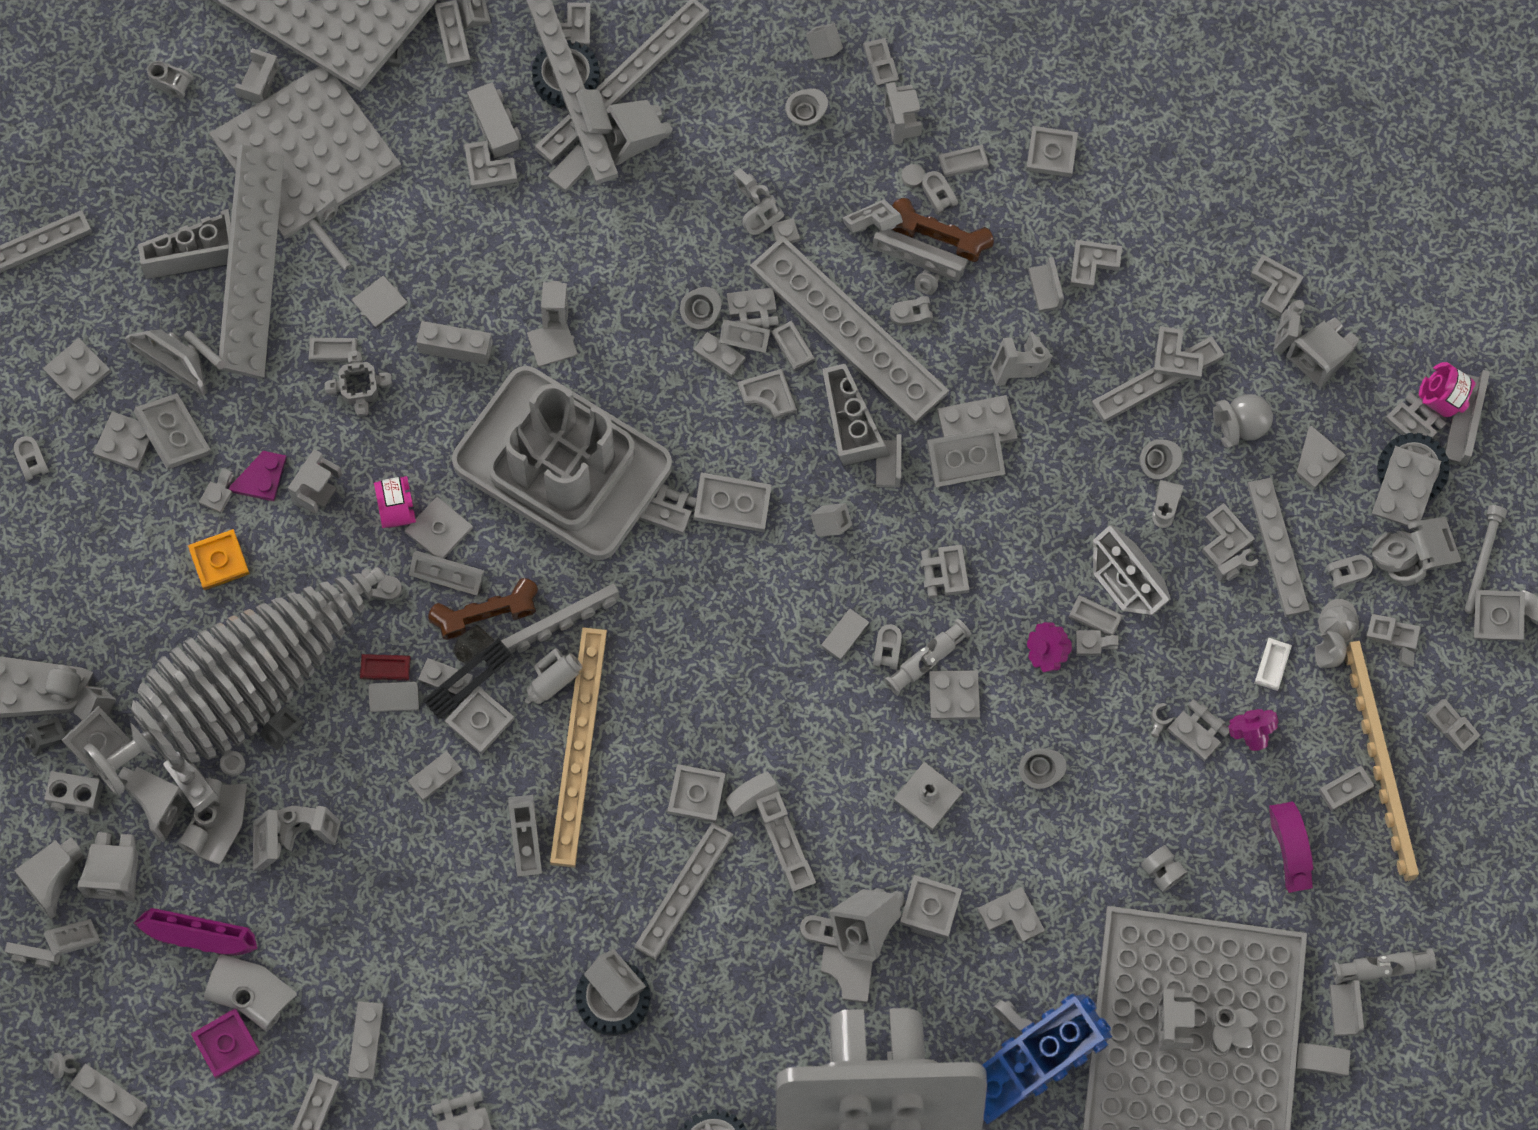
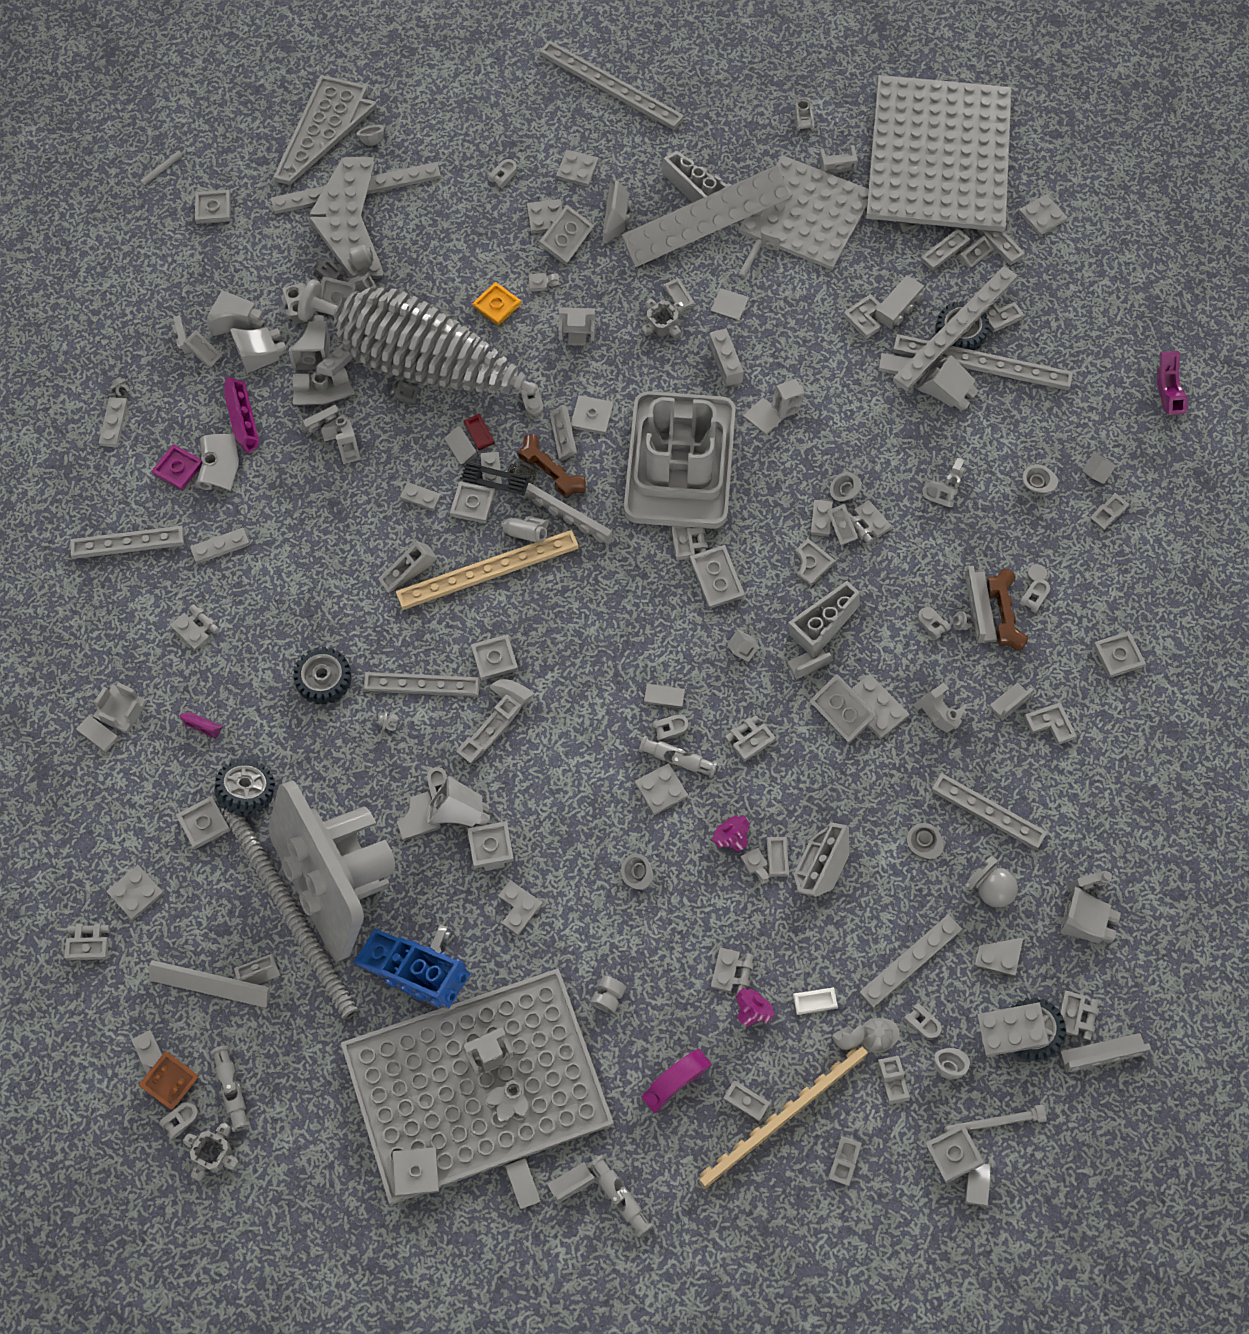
camera: 65 degrees right, 5 degrees down
(204, 350) = (630, 223): light grey bar -> none
(232, 763) = (365, 380): light grey tile -> none
(261, 477) = (567, 298): magenta wing -> none
(394, 502) = (591, 376): dark pink brick -> none
(594, 111) = (941, 349): light grey tile -> none
(614, 979) = (331, 666): light grey panel -> none
(712, 951) = (384, 721): none -> light grey plate
(787, 229) = (939, 514): light grey plate -> none
(792, 345) = (857, 560): light grey tile -> none
(849, 330) = (891, 590): light grey plate -> none
(879, 213) = (987, 563): light grey plate -> none
(900, 109) = (1073, 540): light grey panel -> none
(928, 796) = (576, 807): light grey tile -> none
(963, 161) = (1071, 601): light grey tile -> none
(1159, 724) = (719, 940): light grey piece -> none
(1167, 500) = (898, 862): light grey piece -> none
(1170, 358) = (1008, 810): light grey plate -> none
(1231, 568) = (870, 932): light grey plate -> none
(1232, 536) = (896, 923): light grey plate -> none
(1282, 284) = (1125, 861): light grey plate -> none
(1395, 551) = (959, 1049): light grey tile -> none
(1406, 657) = (879, 1099): light grey piece -> none
(1435, 543) = (981, 1072): light grey container -> none
(1447, 390) = (1114, 1024): dark pink brick -> none

